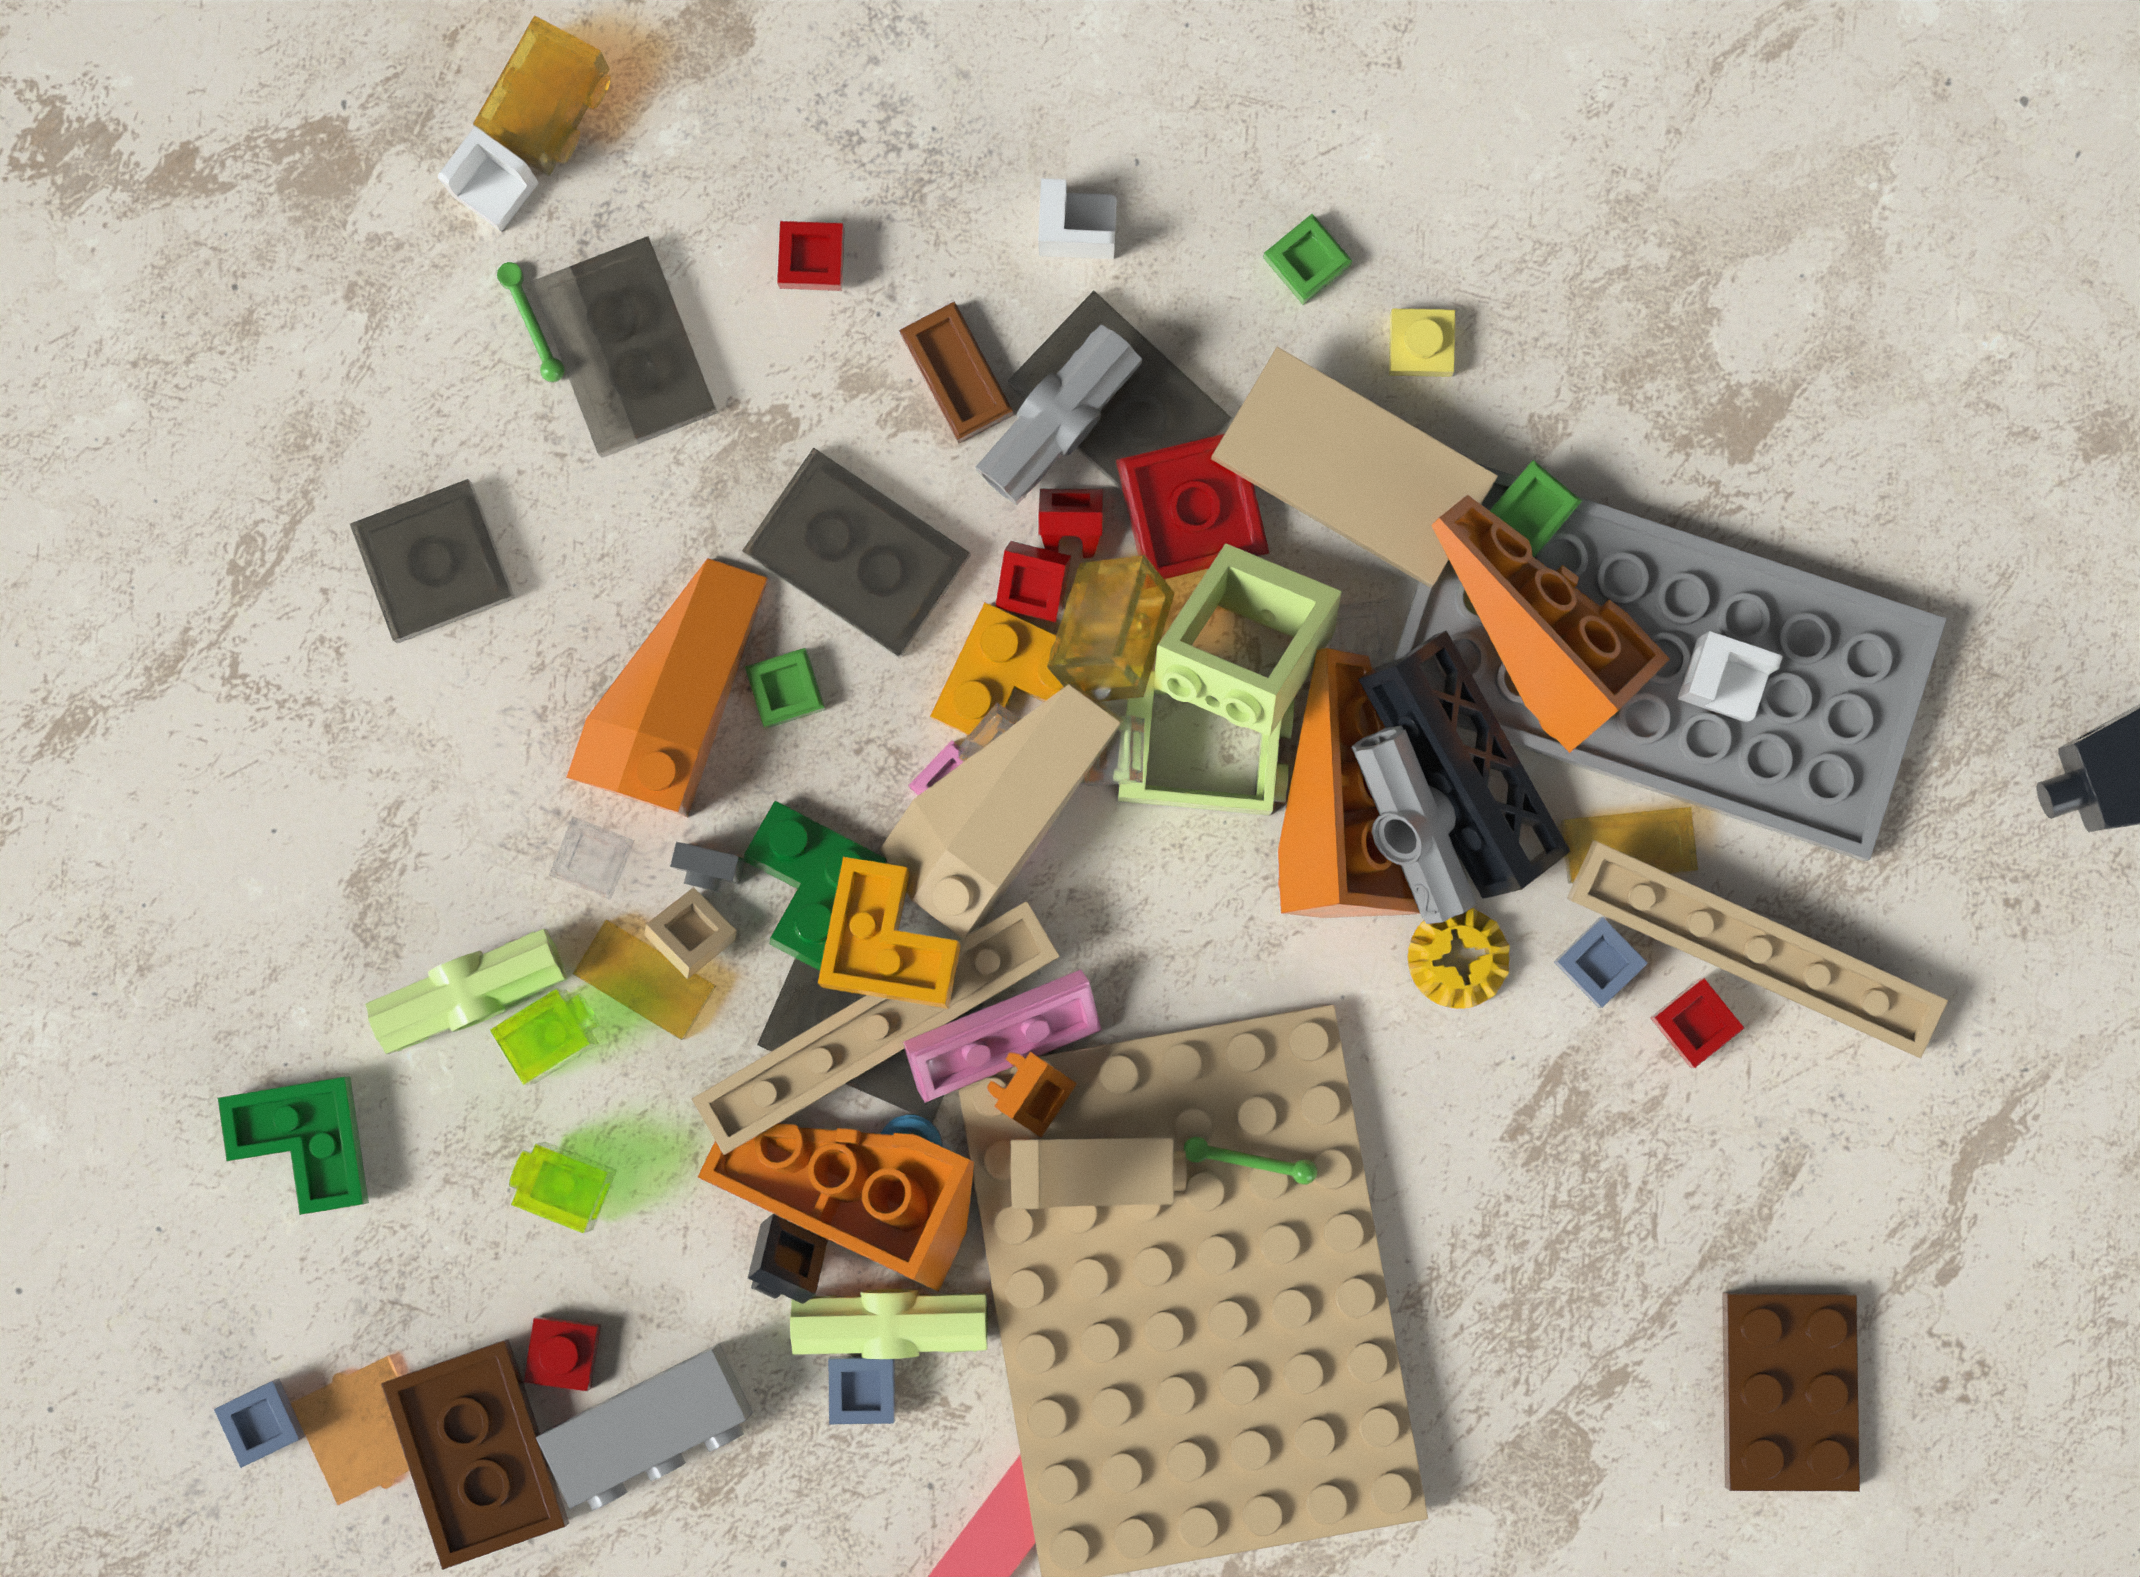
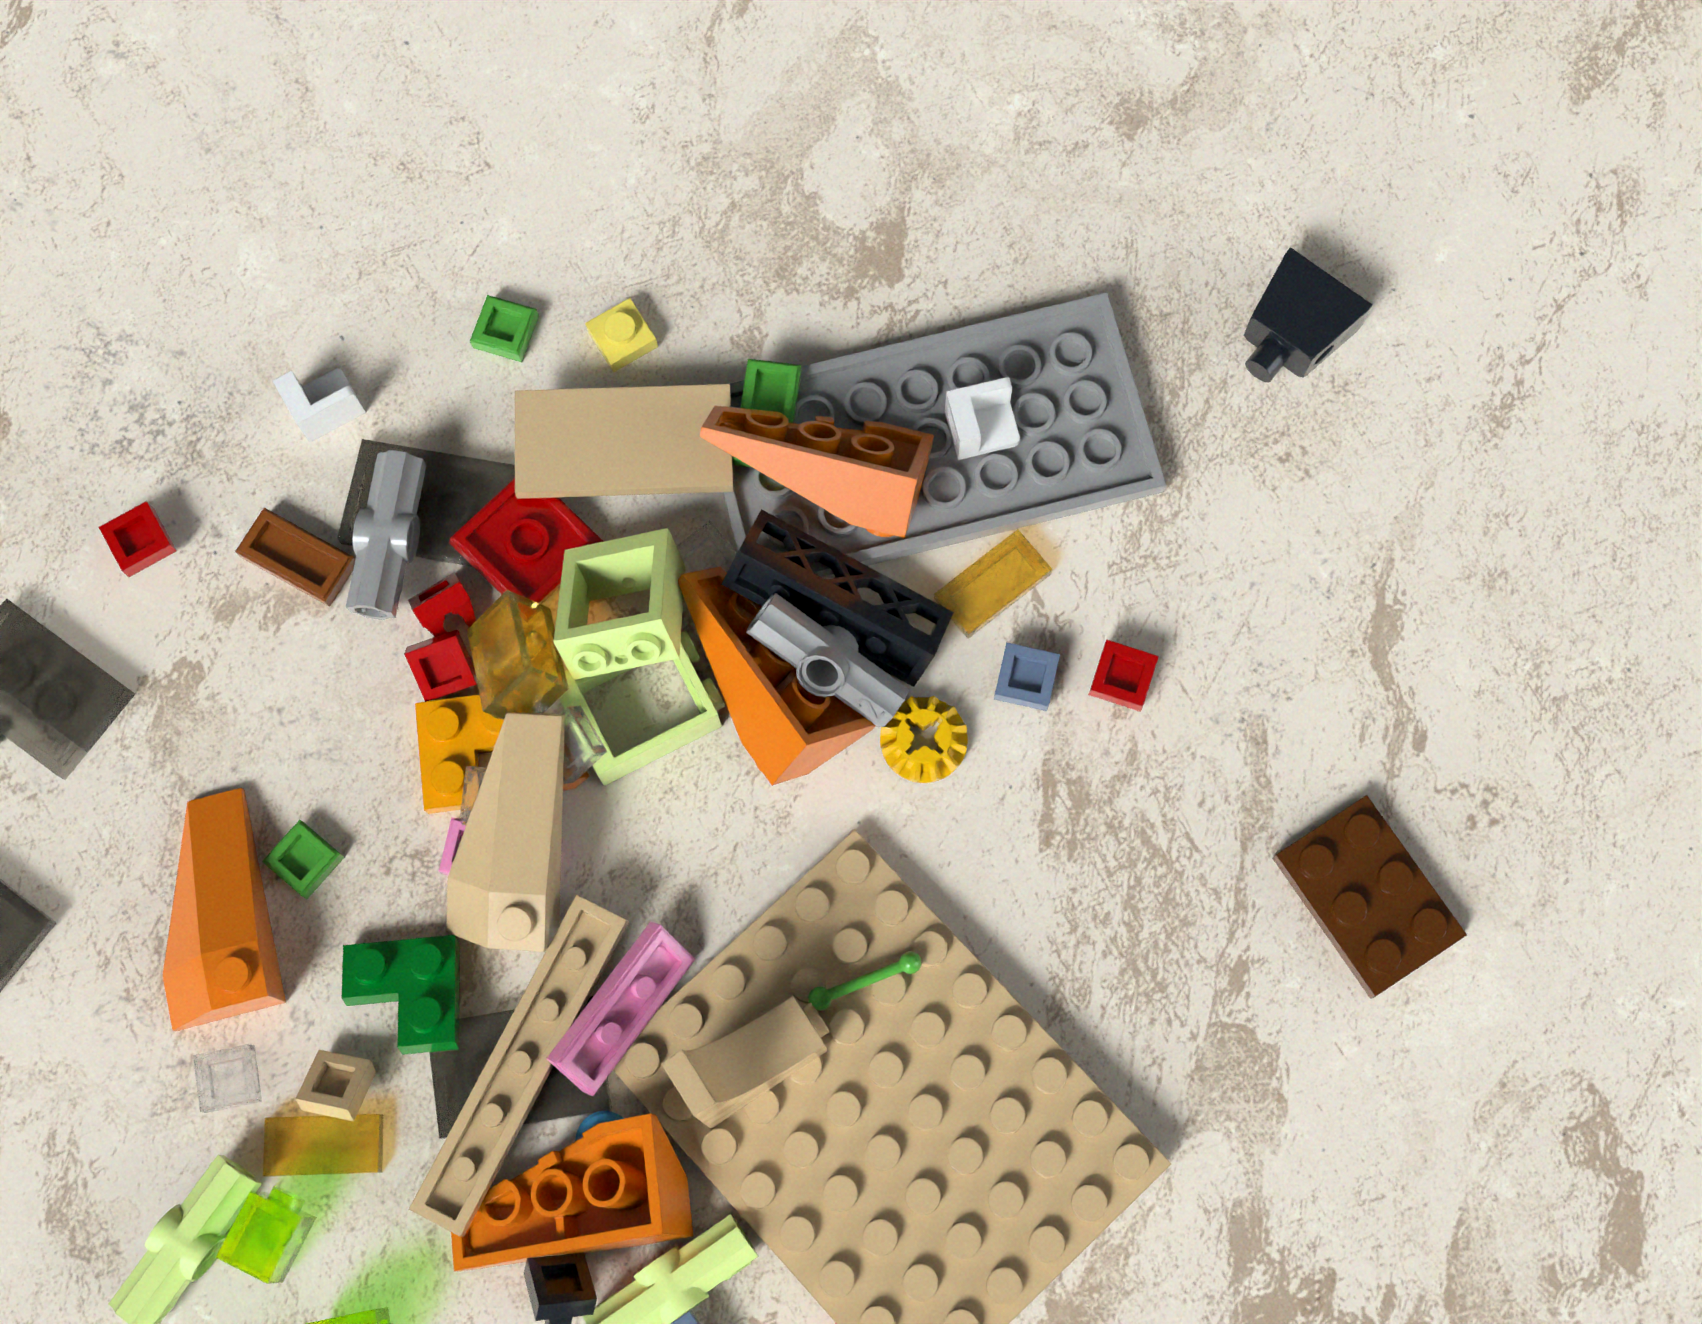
camera: 35 degrees left, 10 degrees down
(707, 867) = (319, 1026): dark grey plate -> none
(856, 553) = (298, 728): clear smoke tile -> none
(870, 953) = (482, 1005): light orange plate -> none
(1033, 1093) = (667, 1030): orange tile -> none
(1757, 949) = (1129, 595): tan plate -> none

